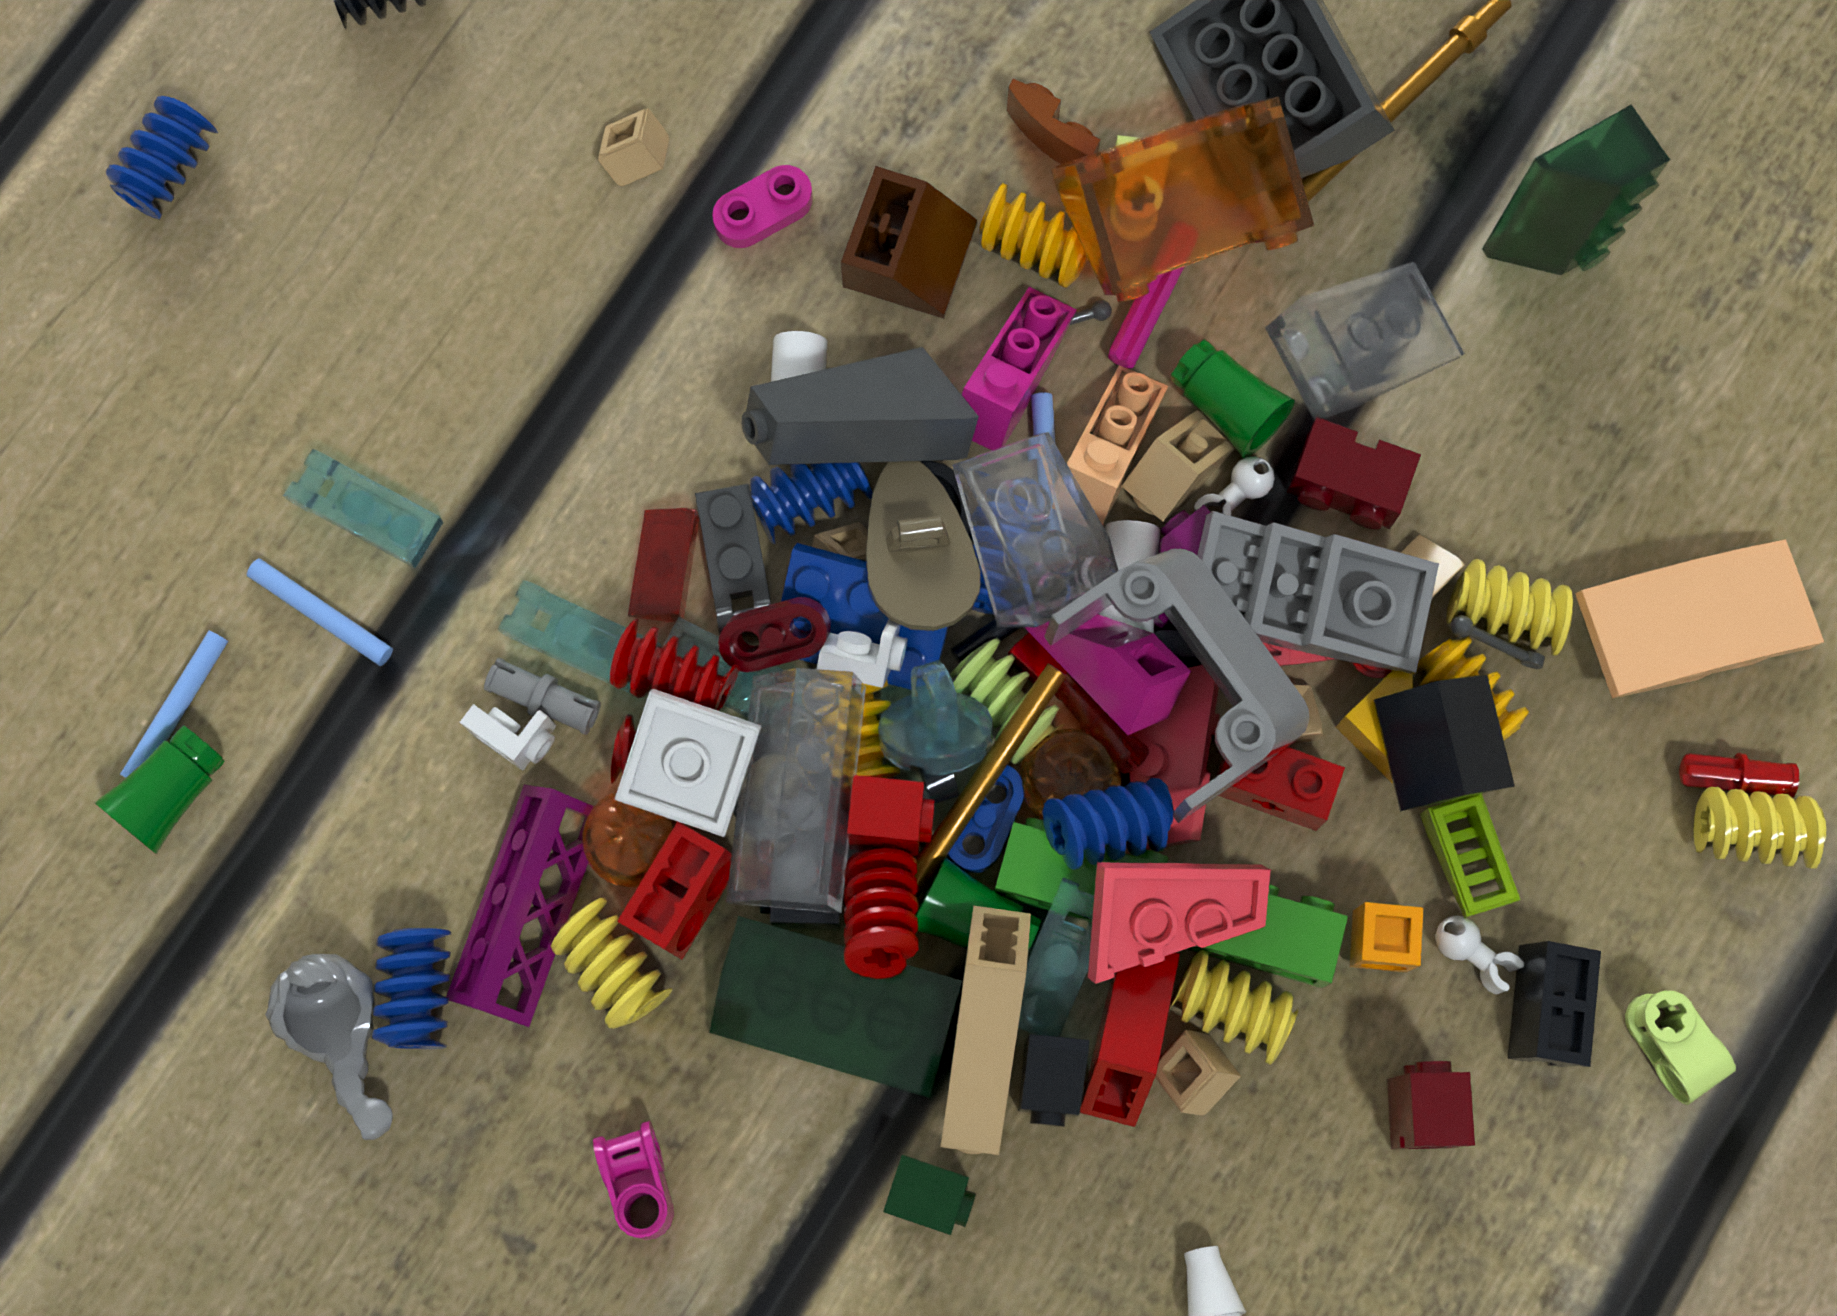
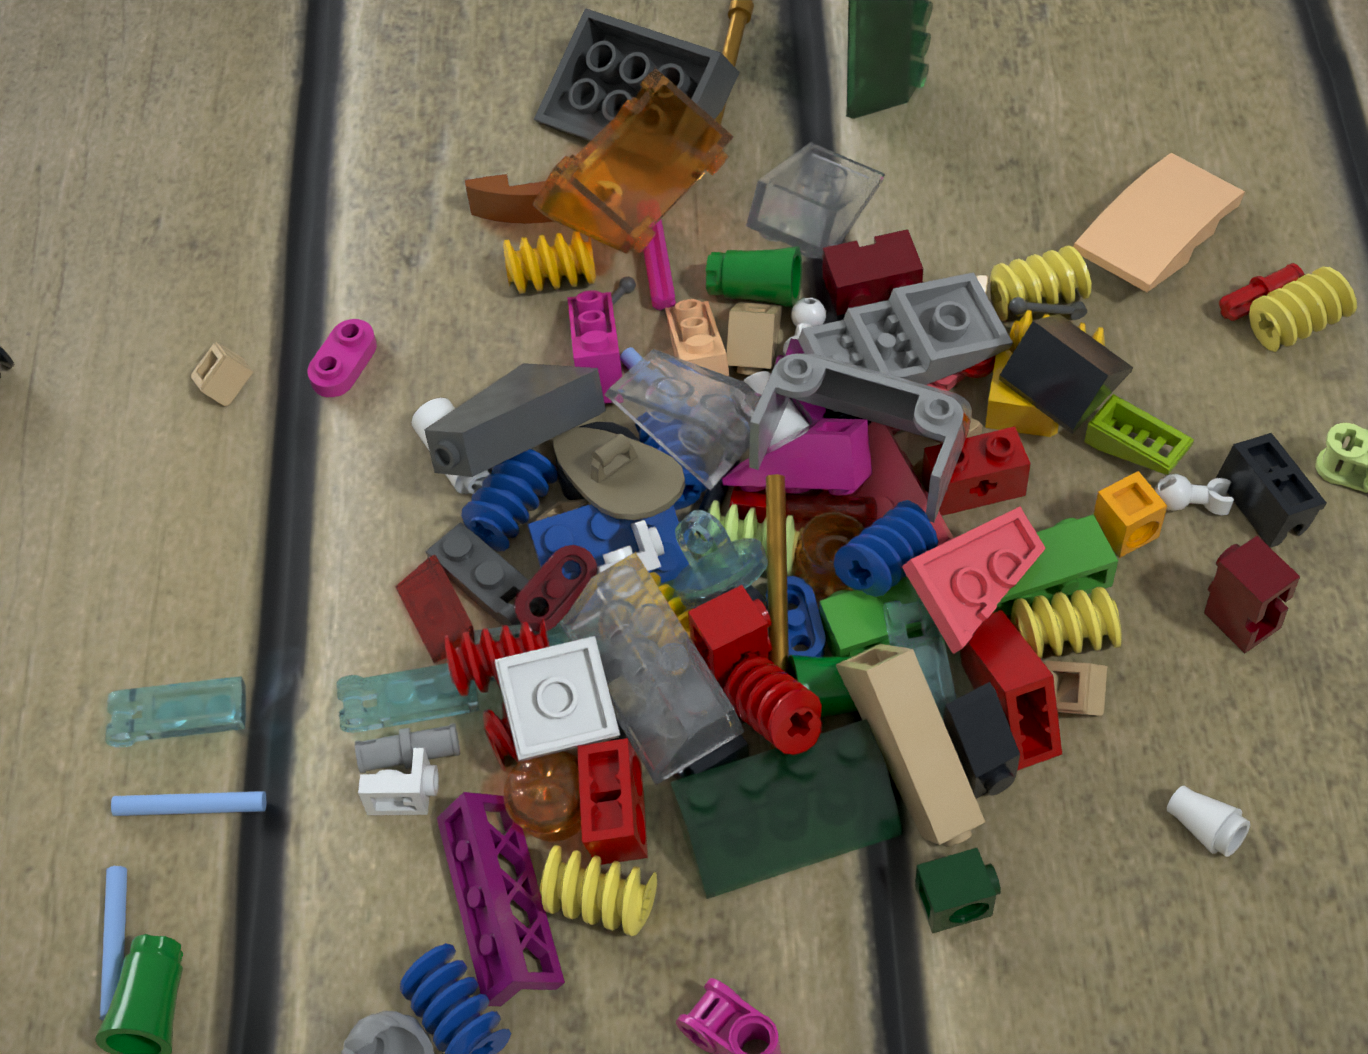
camera: 30 degrees left, 20 degrees down
(907, 243) = (464, 314): reddish brown slope -> none

